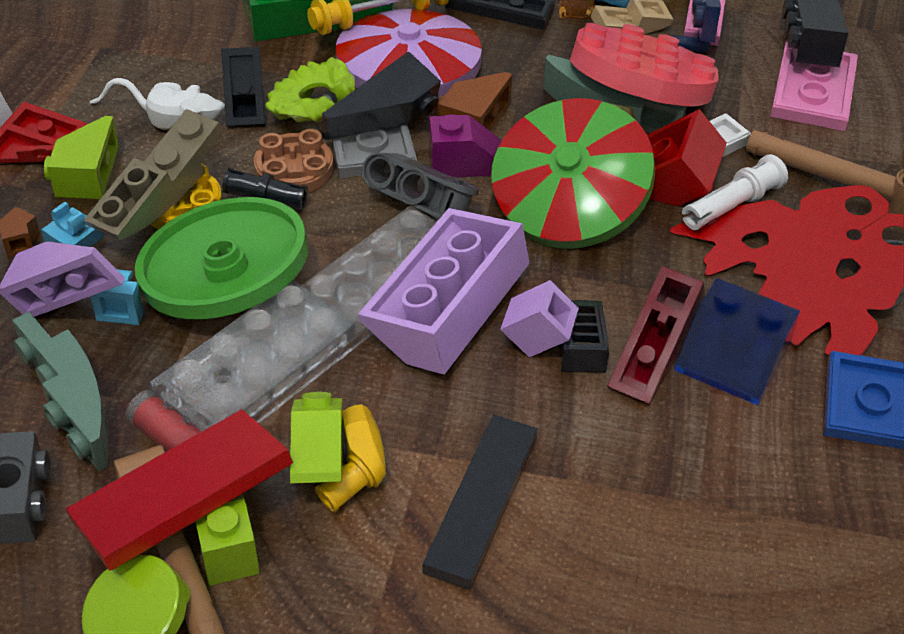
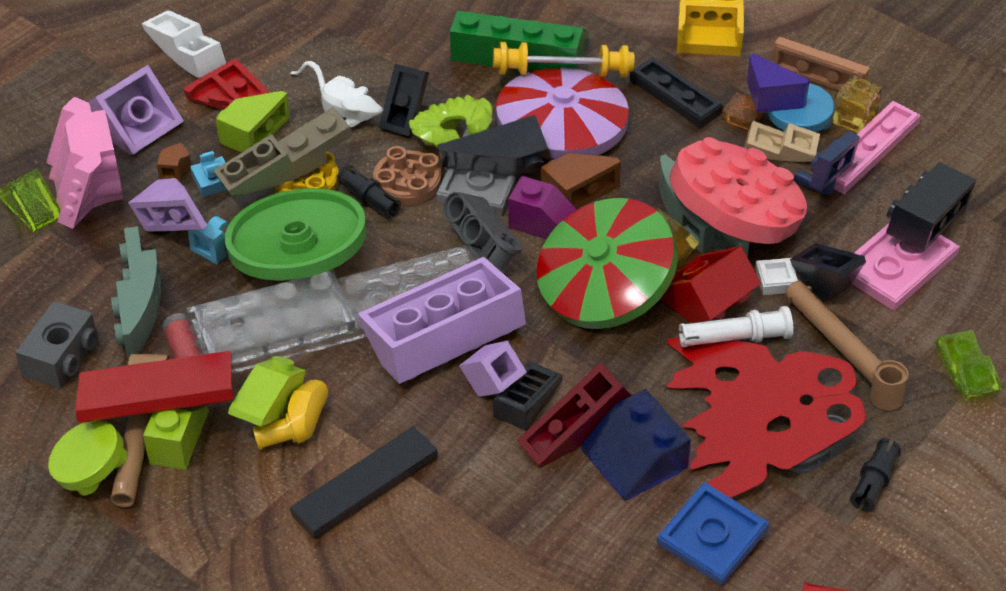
camera: 30 degrees right, 0 degrees up
(773, 108) = (827, 269): none -> black slope

